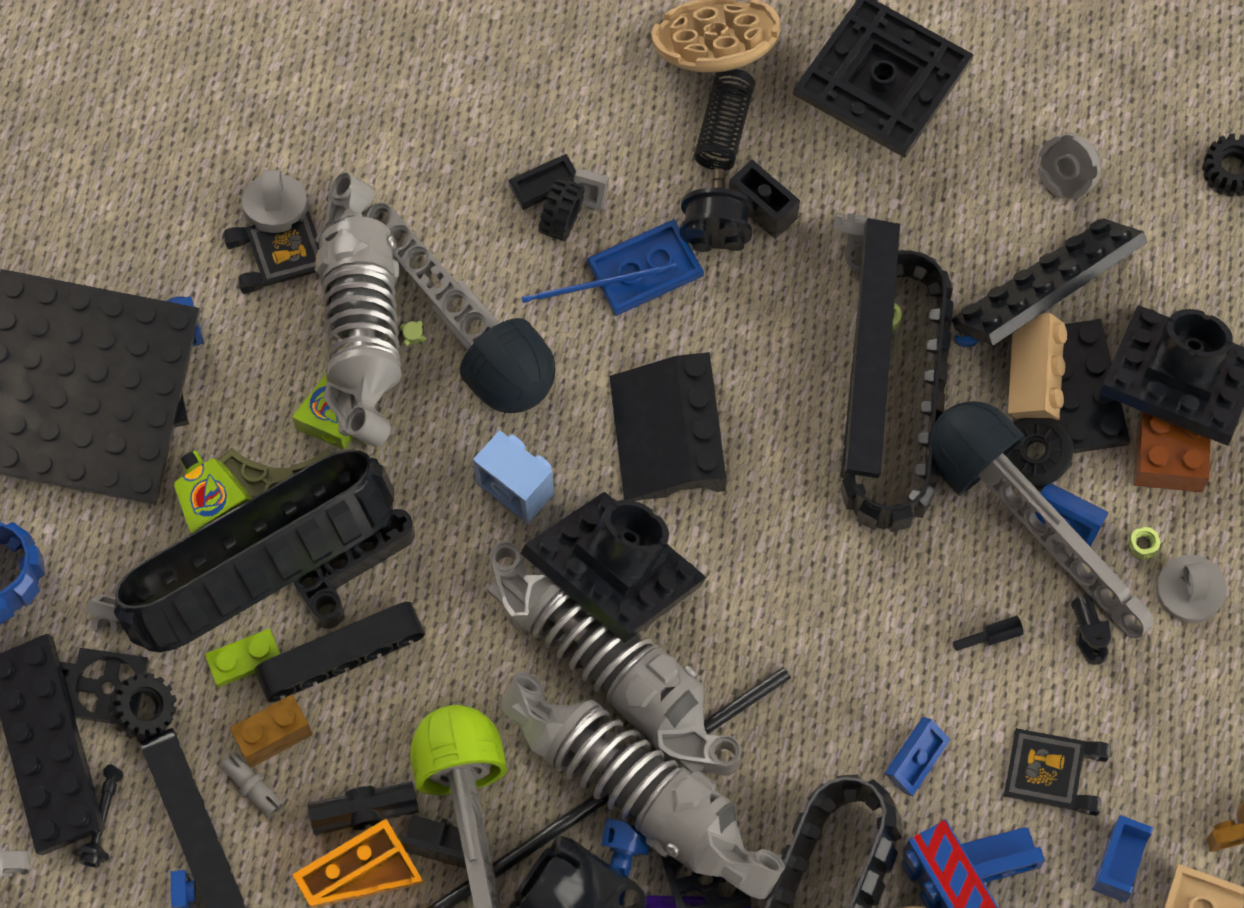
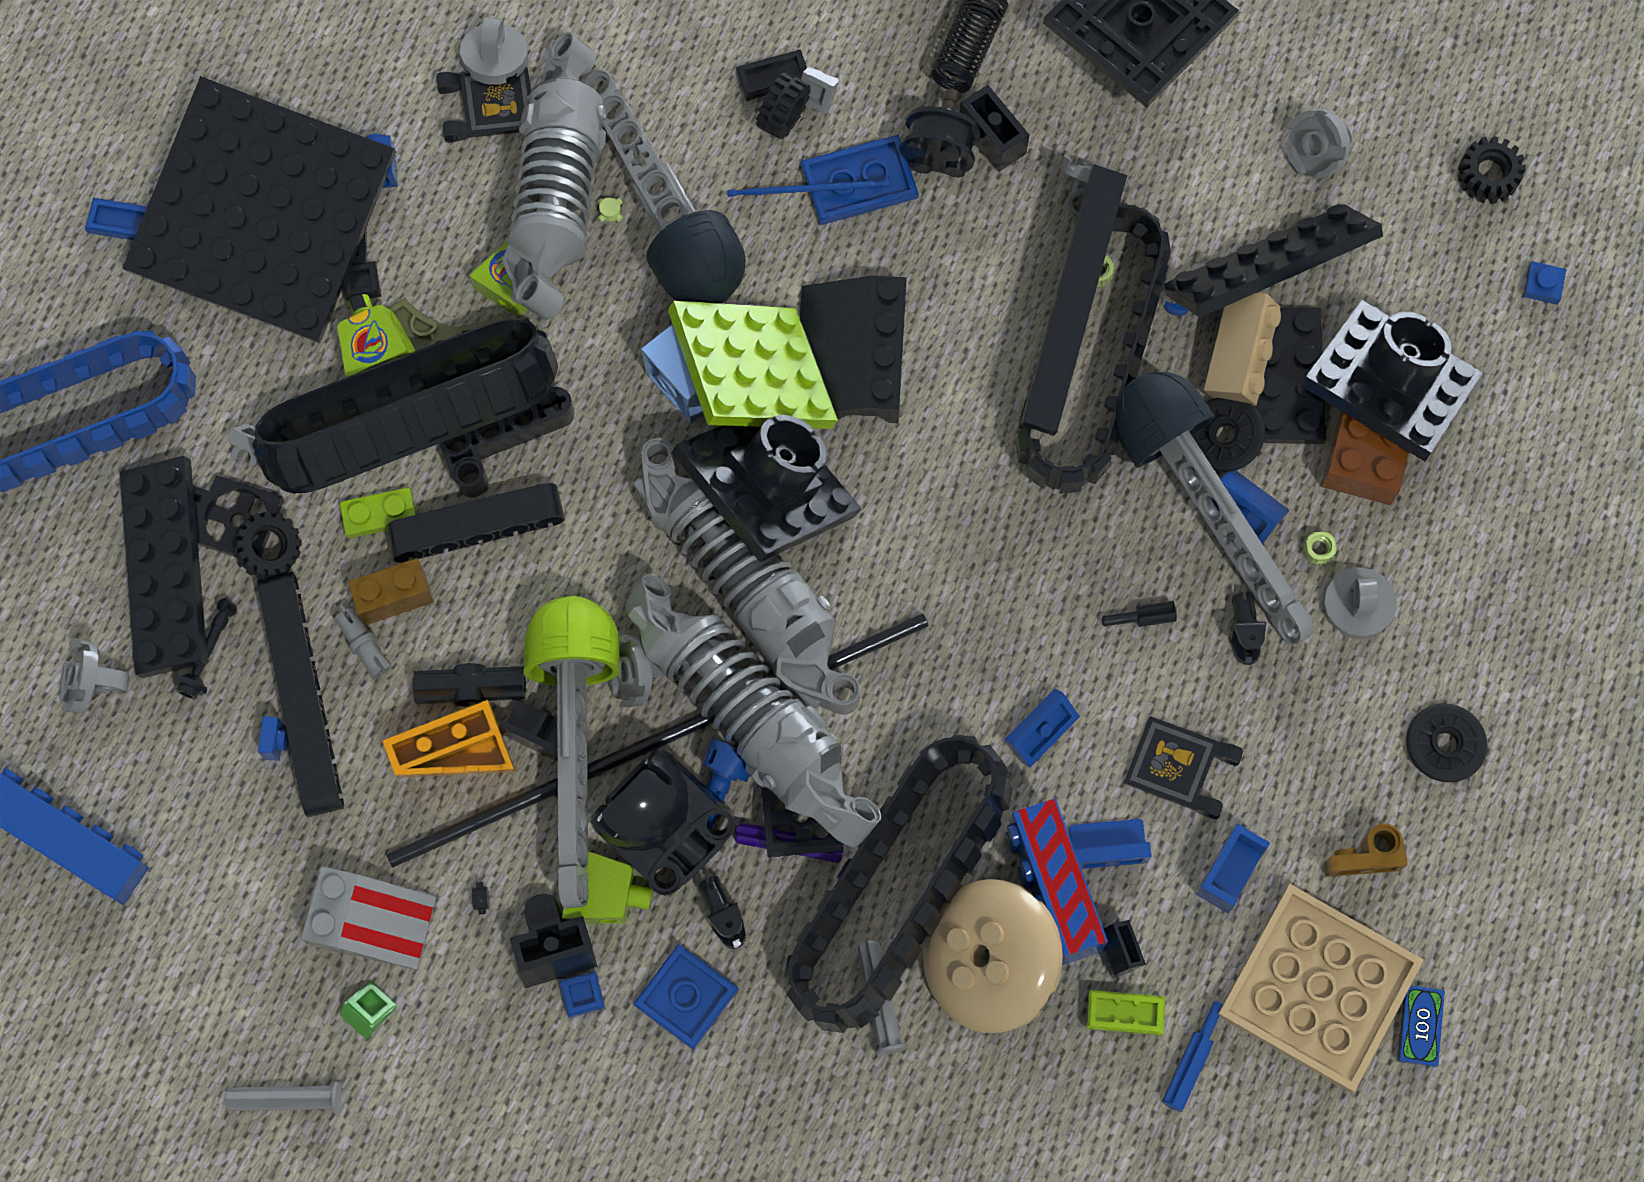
camera: 10 degrees right, 5 degrees up
(187, 438) = (362, 280): none -> black tile
(523, 769) = (635, 672): none -> light grey tile
(578, 457) = (750, 364): none -> lime plate

